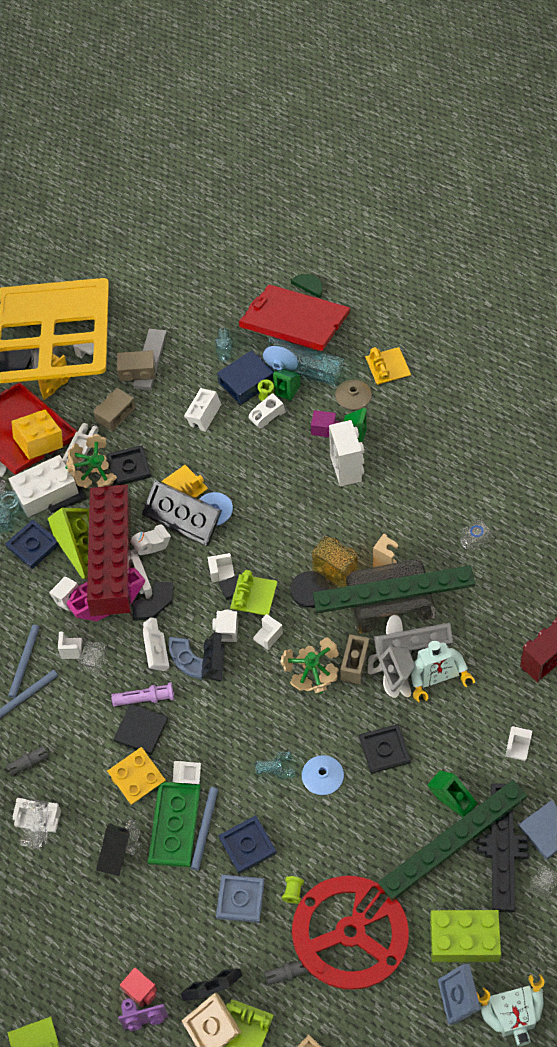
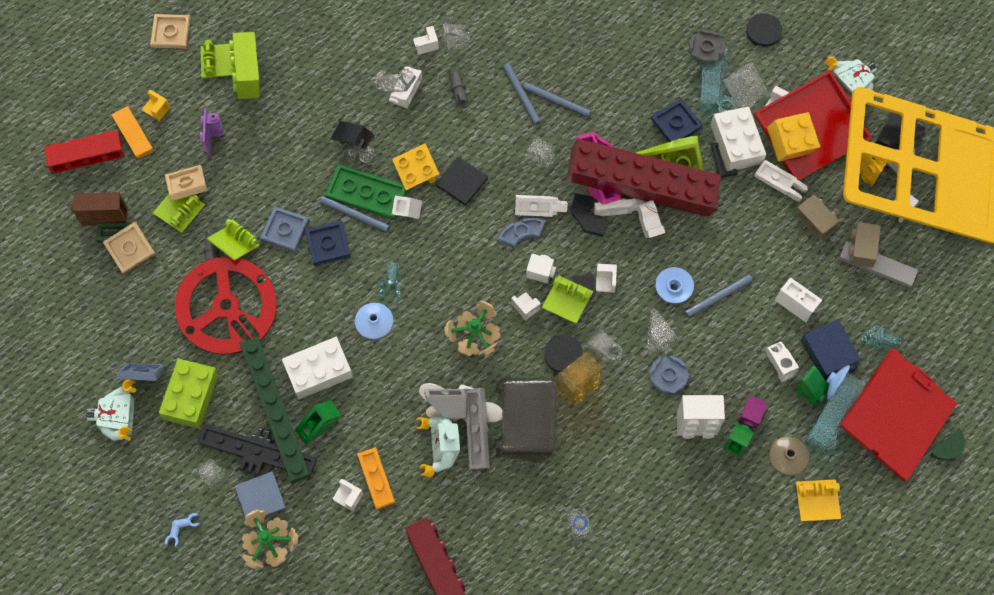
camera: 100 degrees right, 10 degrees up
(43, 999) = (244, 65): none -> lime brick
(61, 592) = (615, 137): white panel -> none
(69, 647) = (559, 135): white panel -> none
(96, 463) = (740, 175): tan plant -> none
(129, 465) = (748, 221): black tile -> none
(139, 988) = (235, 137): coral brick -> none
(151, 694) = (491, 195): lavender pin -> none
(181, 512) = (675, 254): tile -> none
(186, 481) = (710, 263): yellow hinge -> none
(202, 989) = (214, 181): black tile -> none
(213, 658) = (509, 251): black bracket -> none
(214, 475) = (718, 296): none -> sand blue piece
(266, 512) = (659, 334): none -> clear slope
(268, 389) = (810, 360): lime bush -> none
(273, 944) = (234, 240): none -> lime hinge
(293, 889) = (276, 269): lime bush -> none
(294, 552) = (603, 345): none -> clear piece
(304, 498) = (668, 380): none -> sand blue tile
(354, 659) = (472, 370): dark tan brick -> none
(381, 552) = (576, 424): tan hinge -> none
(384, 749) = (381, 378): black tile -> none
(393, 589) = (524, 416): dark green plate -> none
(395, 810) = (317, 368): none -> white brick
(490, 725) = (376, 478): none -> light orange tile

